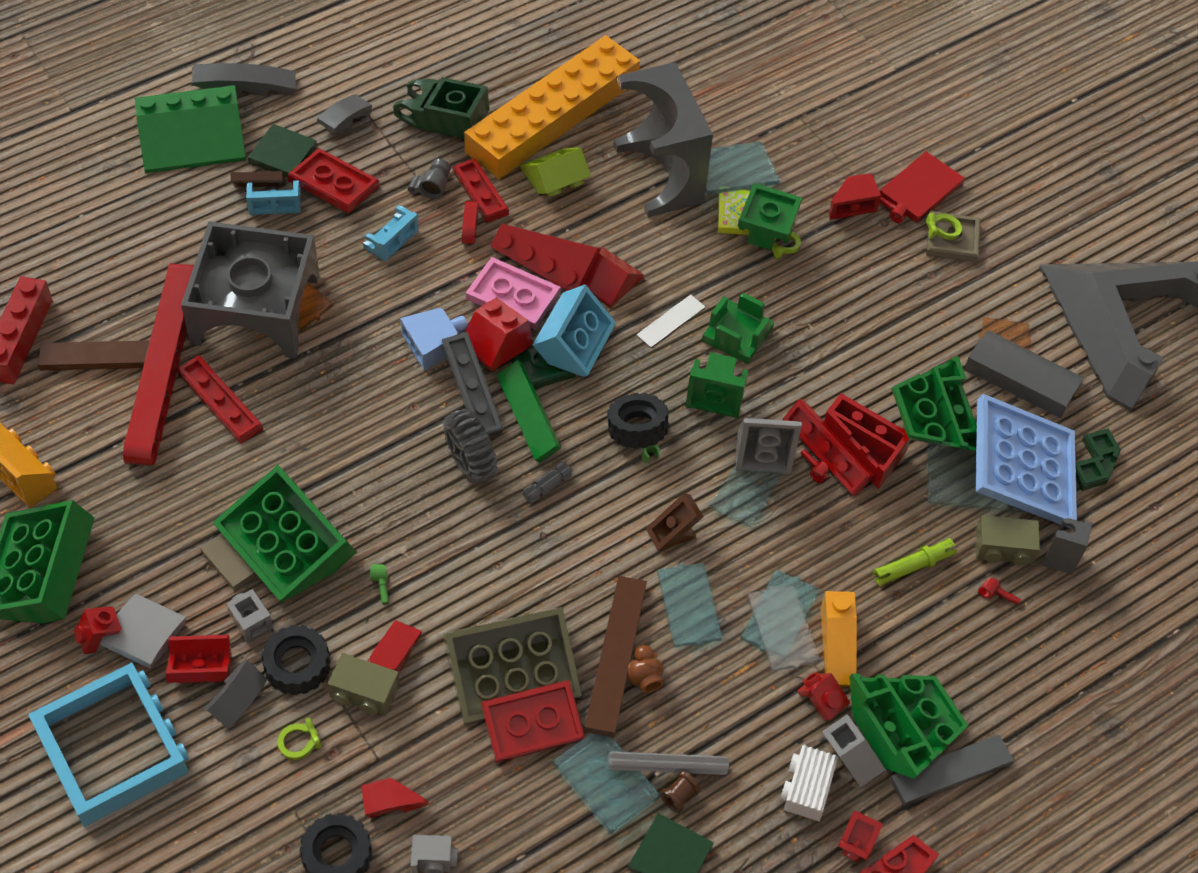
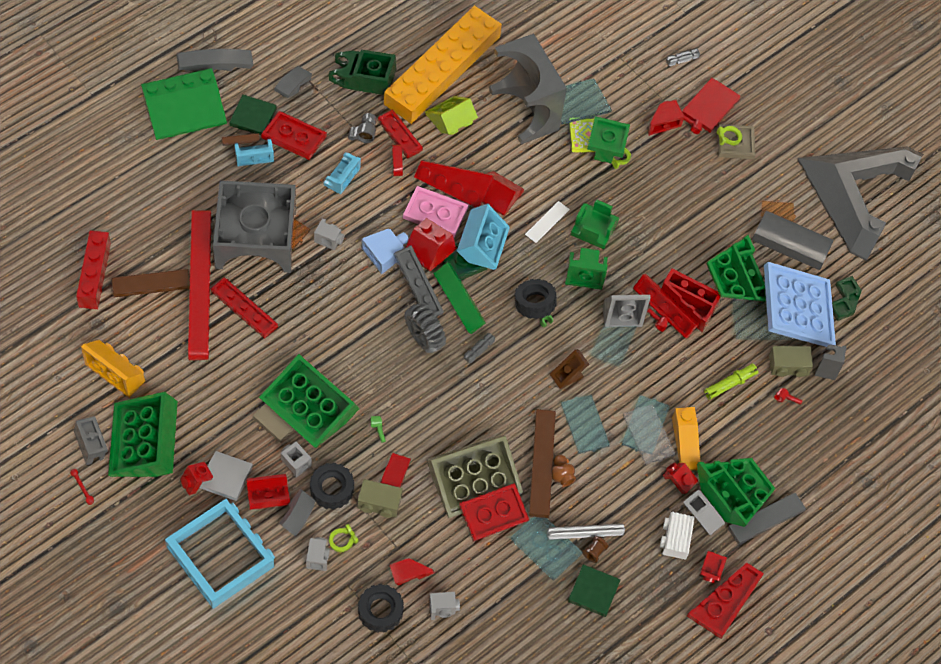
camera: 10 degrees left, 5 degrees up
(254, 758) = (317, 554): none -> light grey brick
(355, 311) = (328, 235): none -> light grey brick
(888, 123) = (683, 57): none -> axle

